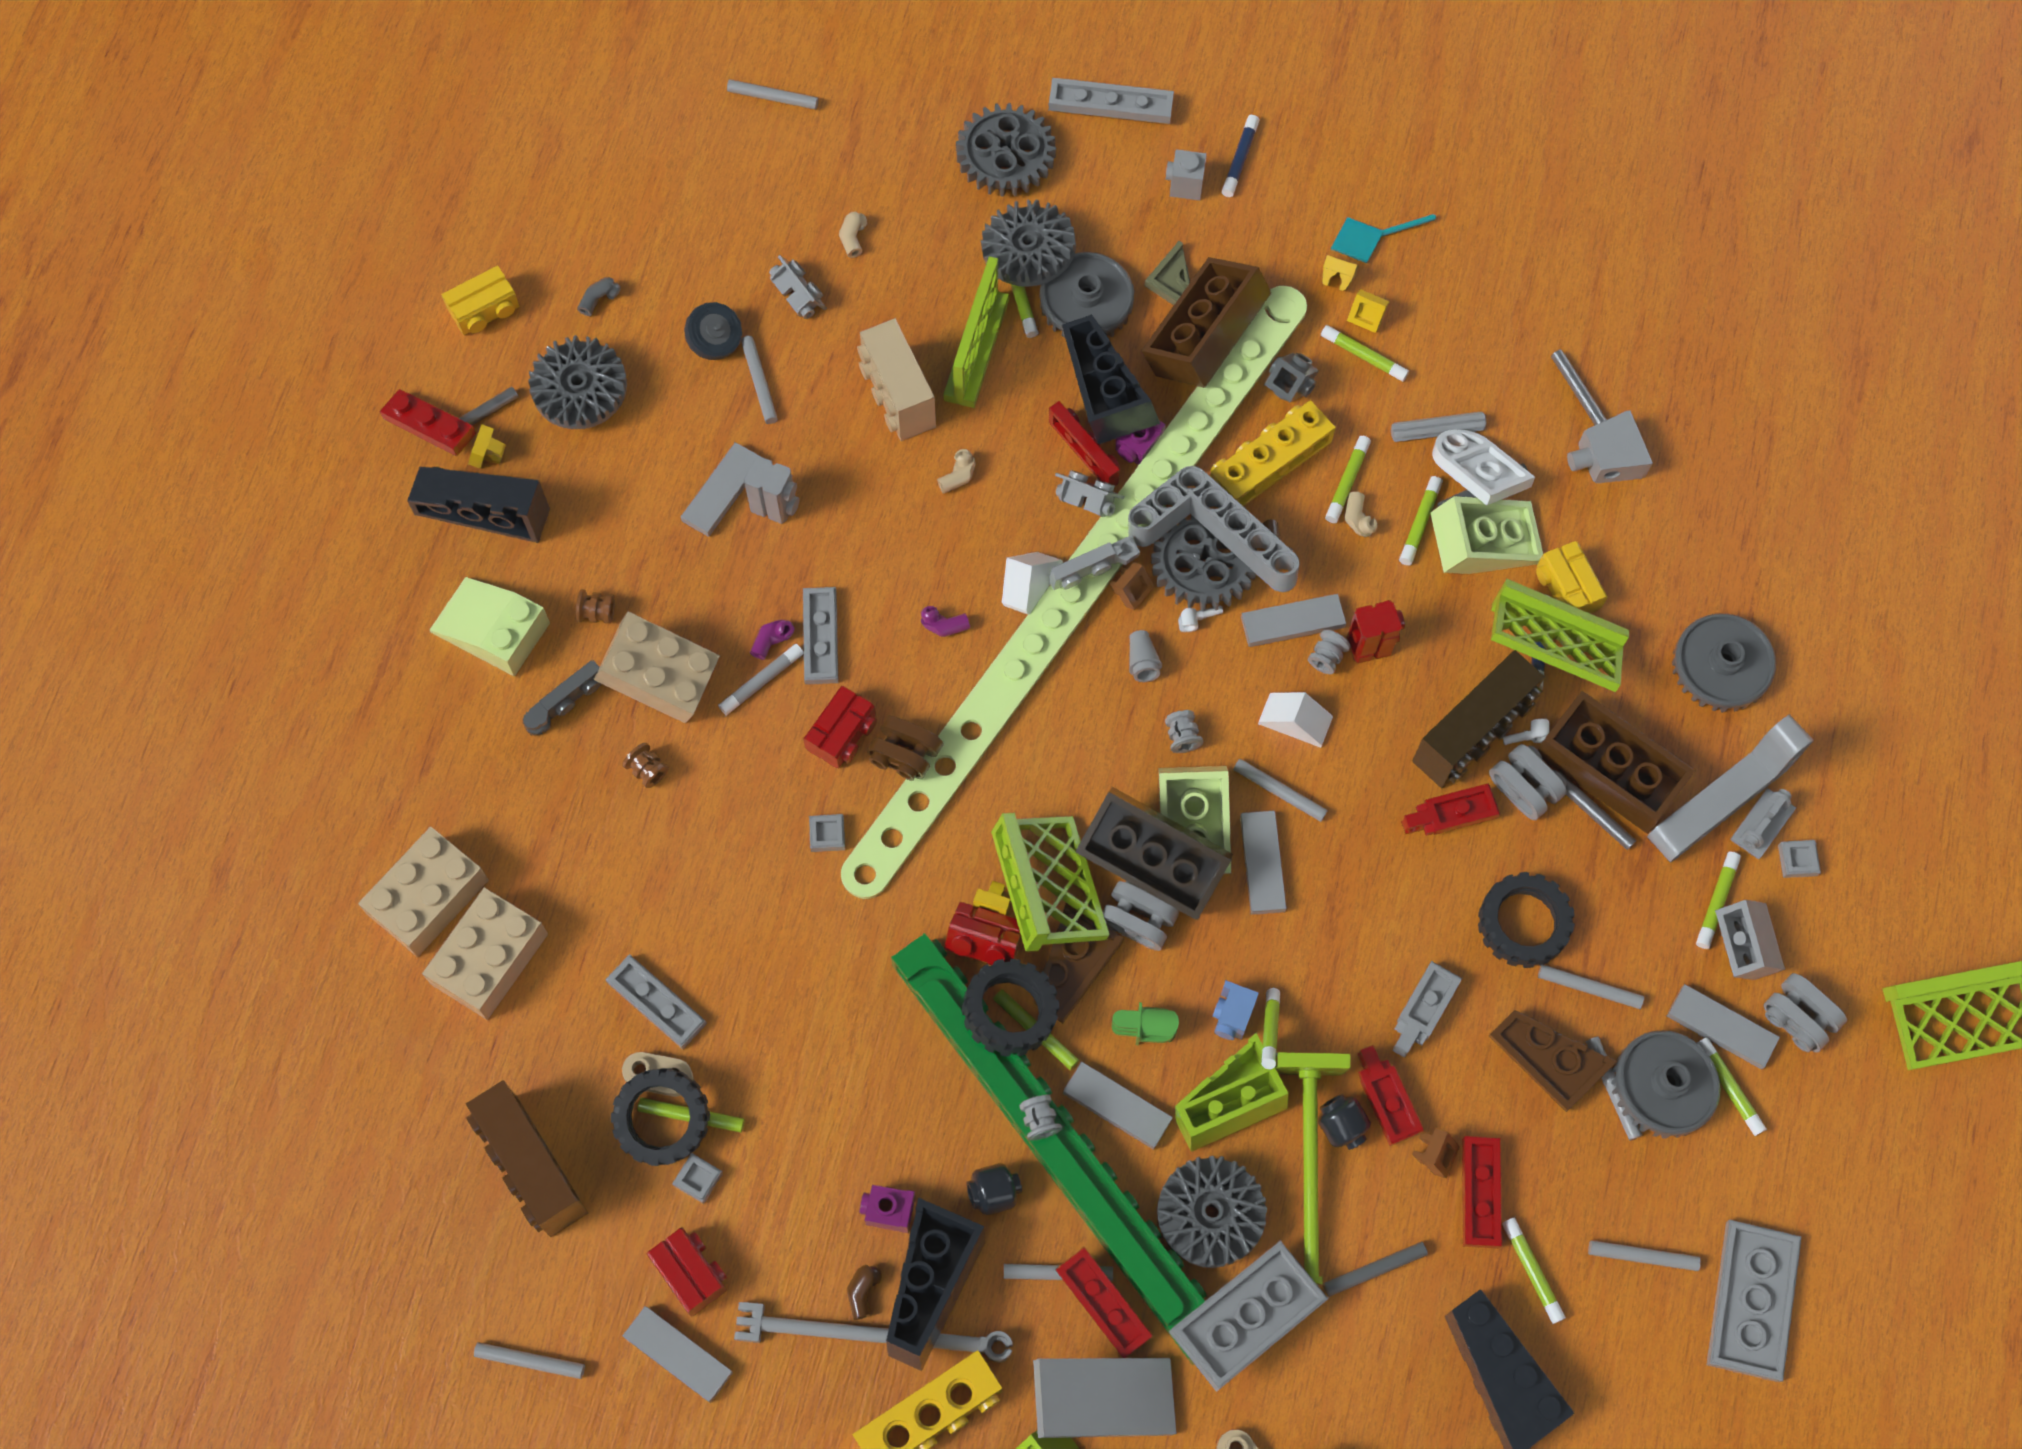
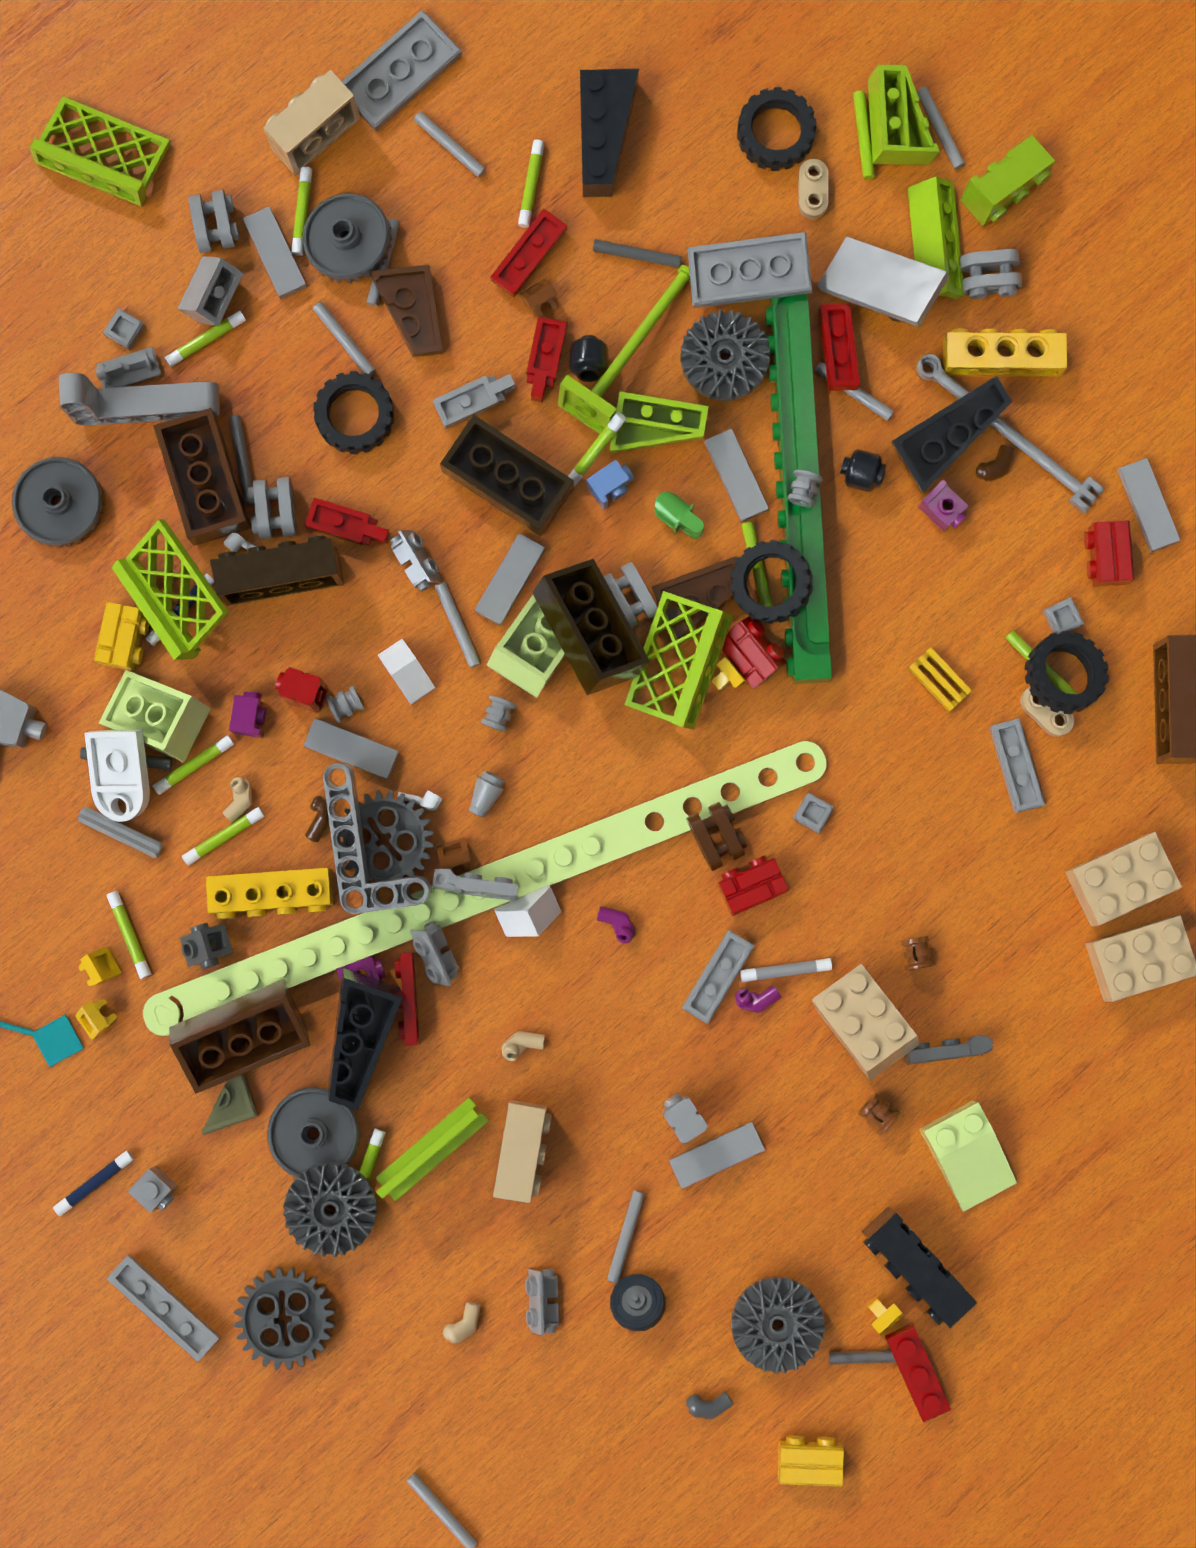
camera: 145 degrees left, 15 degrees up
(755, 1028) = (965, 690): none -> yellow tile
(1336, 949) = (507, 475): none -> dark brown brick
(1374, 829) = (409, 547): none -> light grey hinge
(1406, 586) = (248, 715): none -> magenta brick
(1792, 1171) = (312, 121): none -> tan brick

